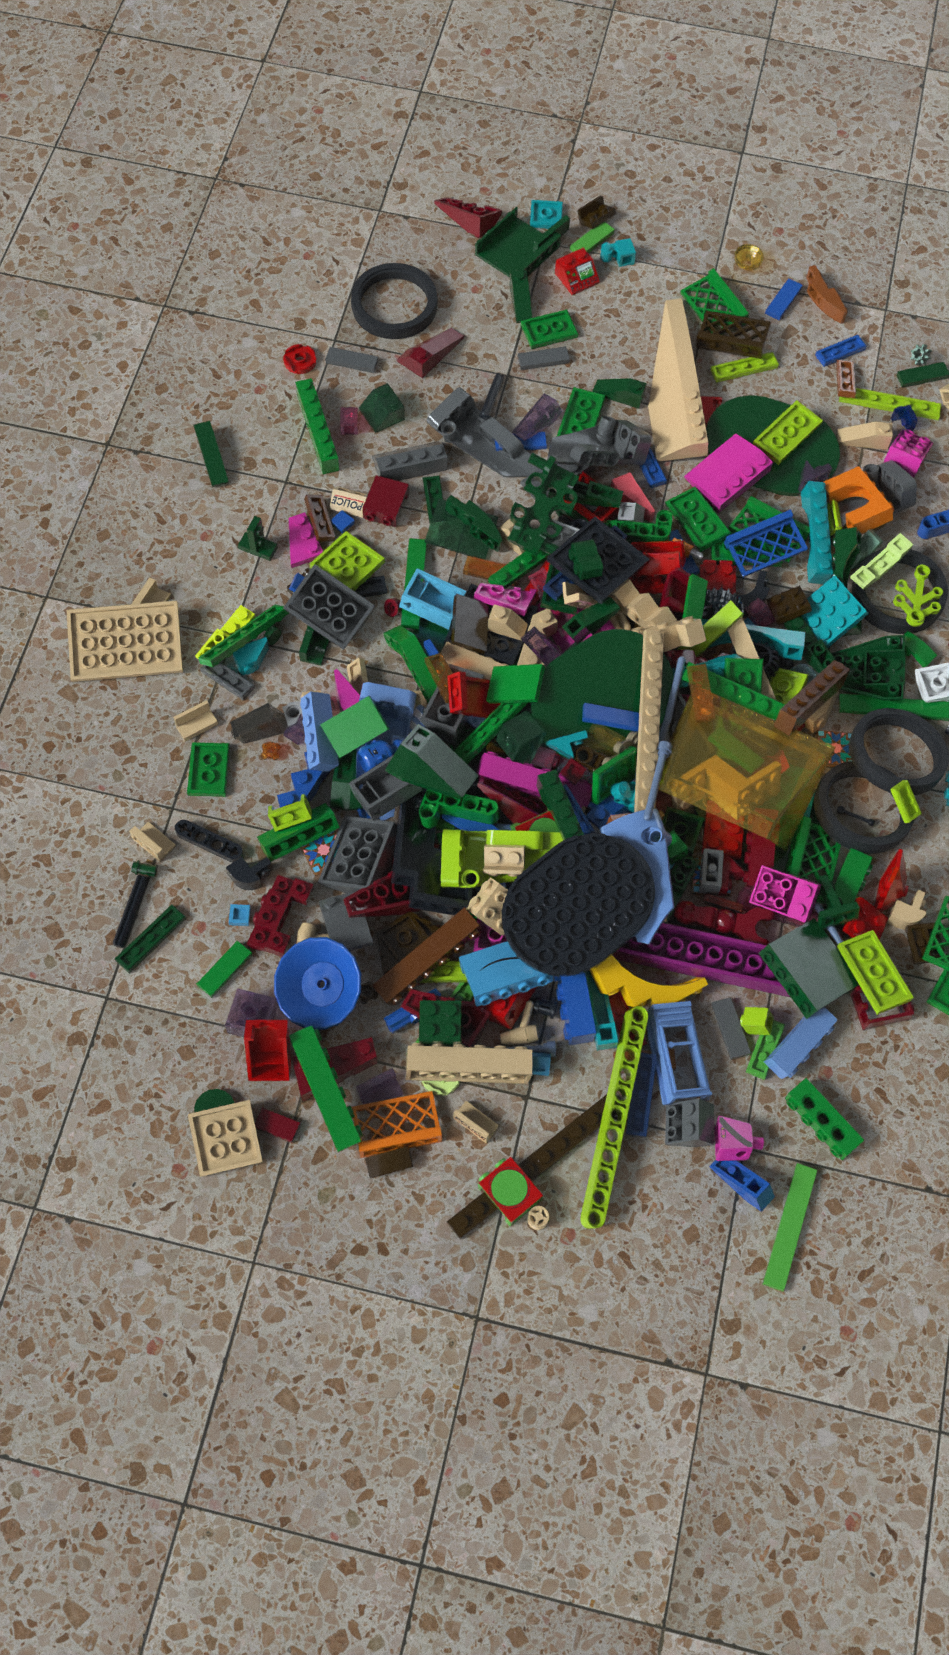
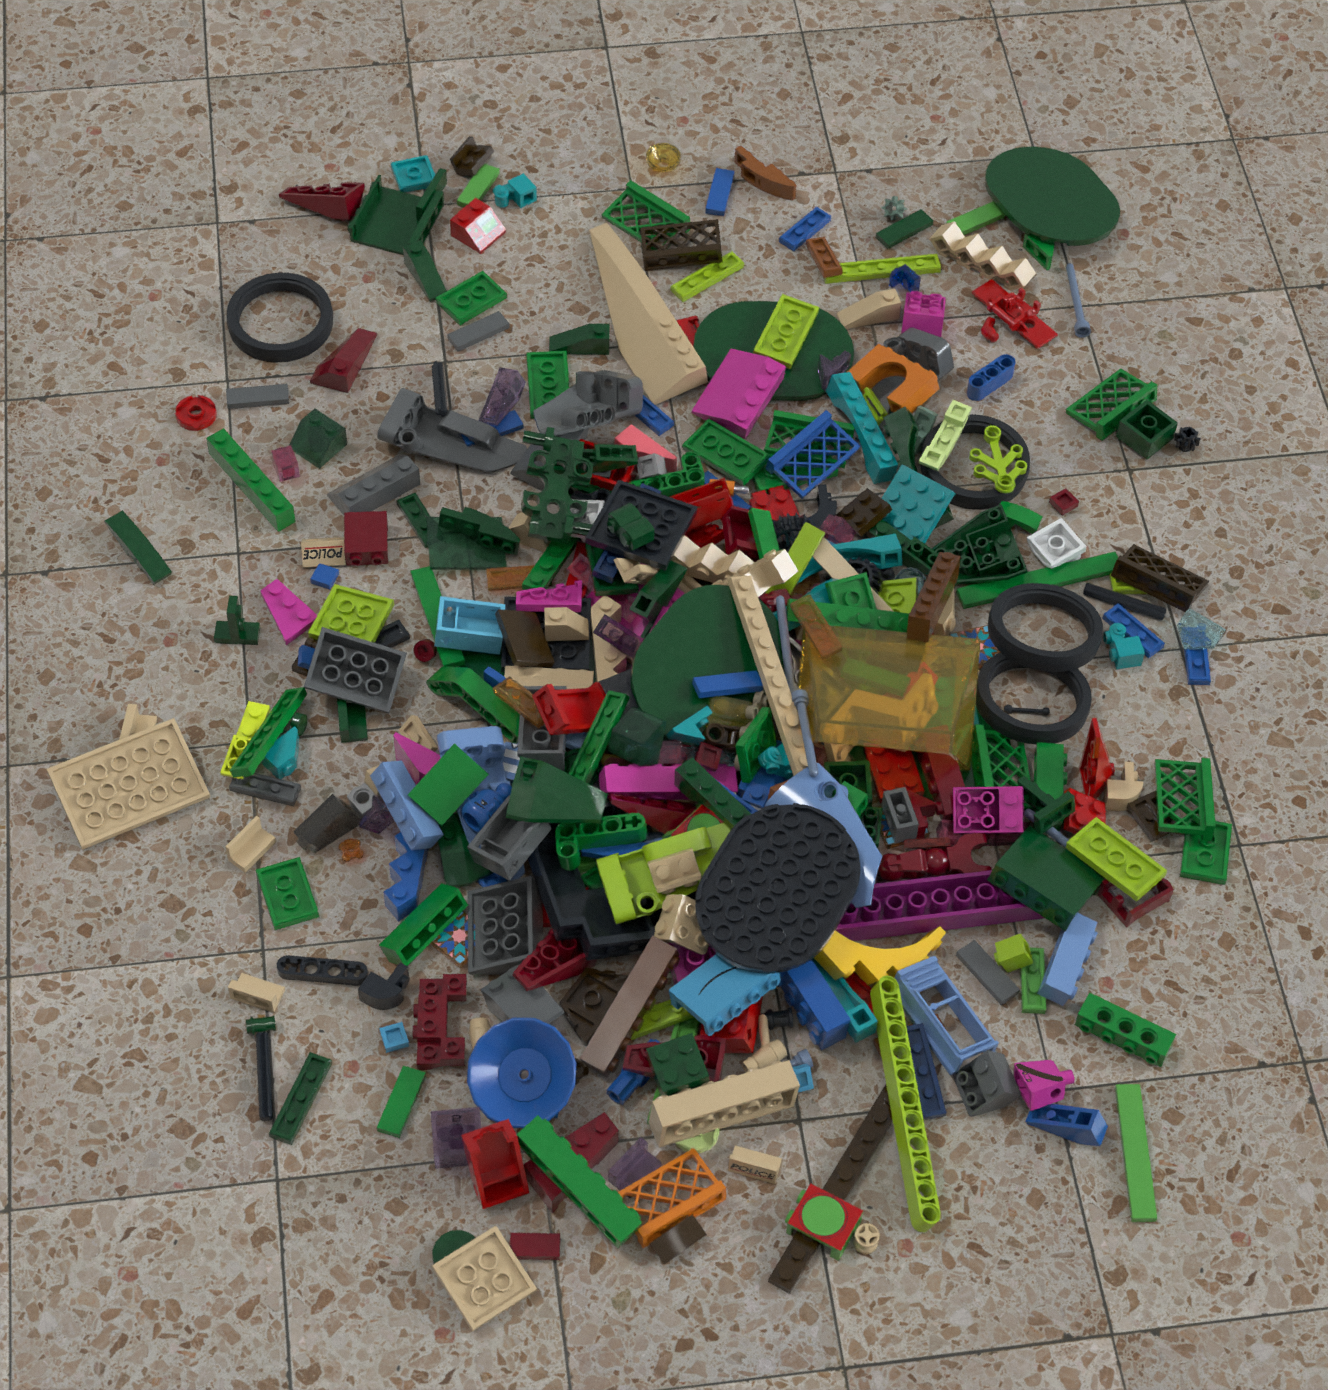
camera: 20 degrees left, 10 degrees down
(290, 814) = (409, 906): lime panel -> none
(319, 518) = (297, 579): reddish brown plate -> none
(515, 684) = (609, 681): green tile -> none
(905, 801) = (1075, 673): lime plate -> none

